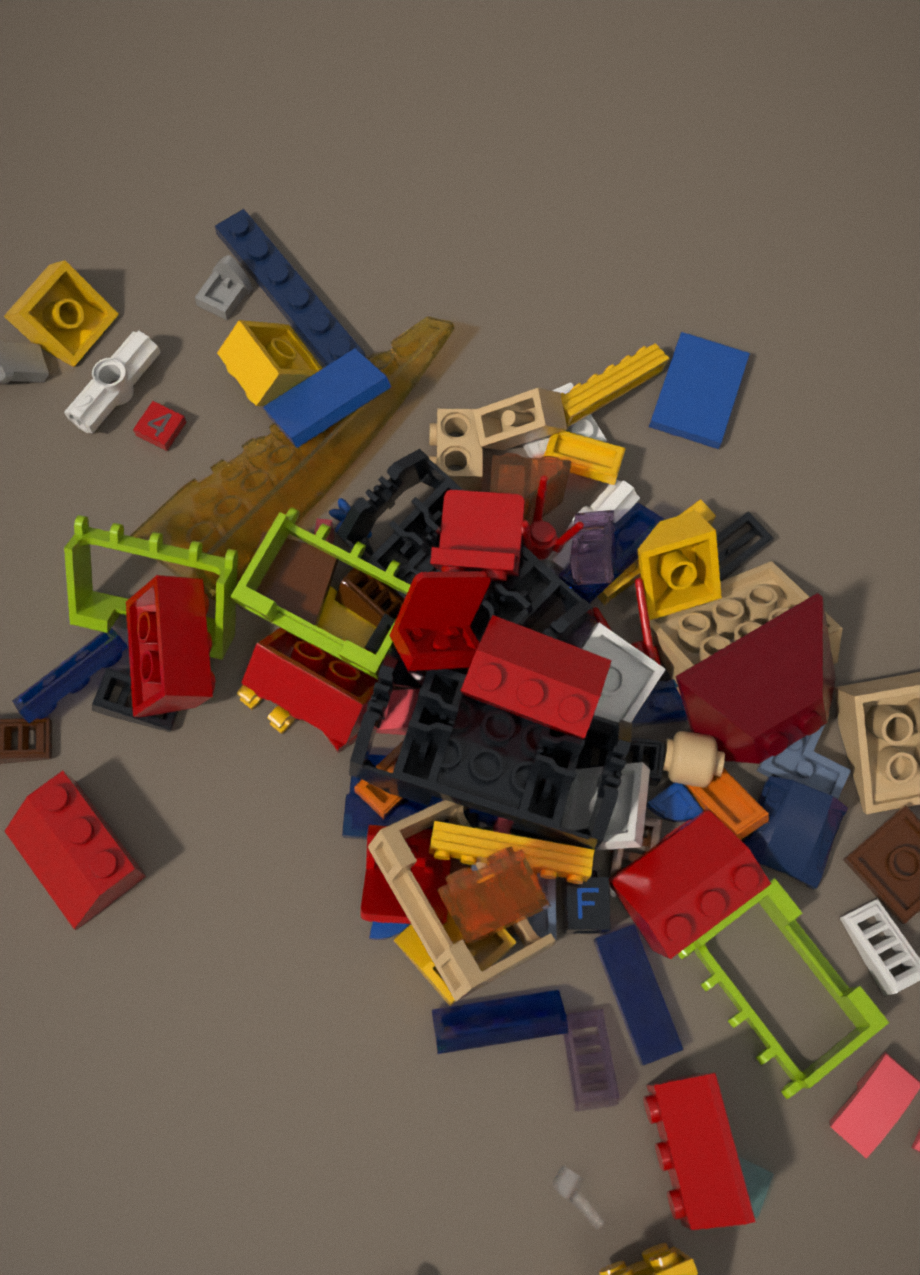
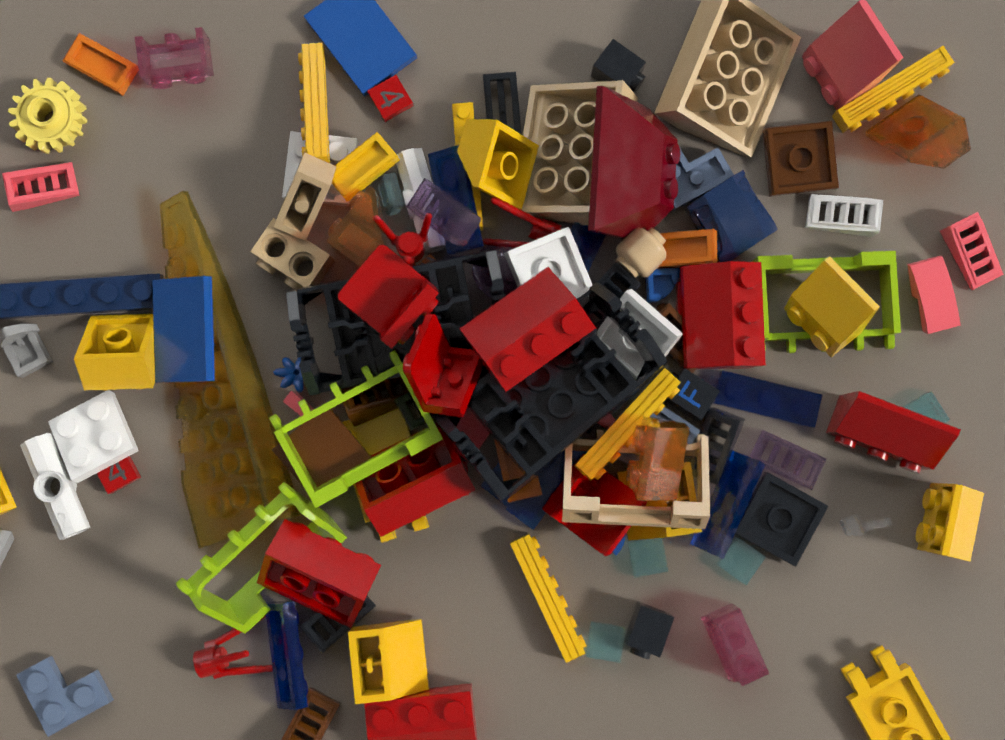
camera: 50 degrees left, 15 degrees up
(29, 613) = (215, 660): none -> red plant
(119, 772) = (388, 660): none -> yellow slope
(179, 386) = (93, 436): none -> white plate
(271, 987) = (605, 641): none -> clear light blue tile
(281, 895) = (550, 603): none -> yellow piece
(310, 1022) = (648, 630): none -> black brick
(351, 1130) = (735, 645): none -> clear pink window
(376, 205) = (26, 176): none -> coral slope
(389, 974) = (647, 557): none -> clear light blue tile
(441, 191) = (36, 104): none -> light yellow gear
(449, 1079) = (741, 560): none -> clear light blue tile
(515, 206) = (101, 64): none -> orange tile
(521, 1092) = (781, 518): none -> black plate
(563, 256) = (175, 60): none -> clear pink window
(568, 979) = (731, 436): none -> black slope
(577, 498) = (390, 194): none -> clear light blue tile
(664, 447) = (390, 98): none -> red tile
(779, 990) = (830, 307): none -> yellow slope
(858, 625) = (619, 64): none -> black brick

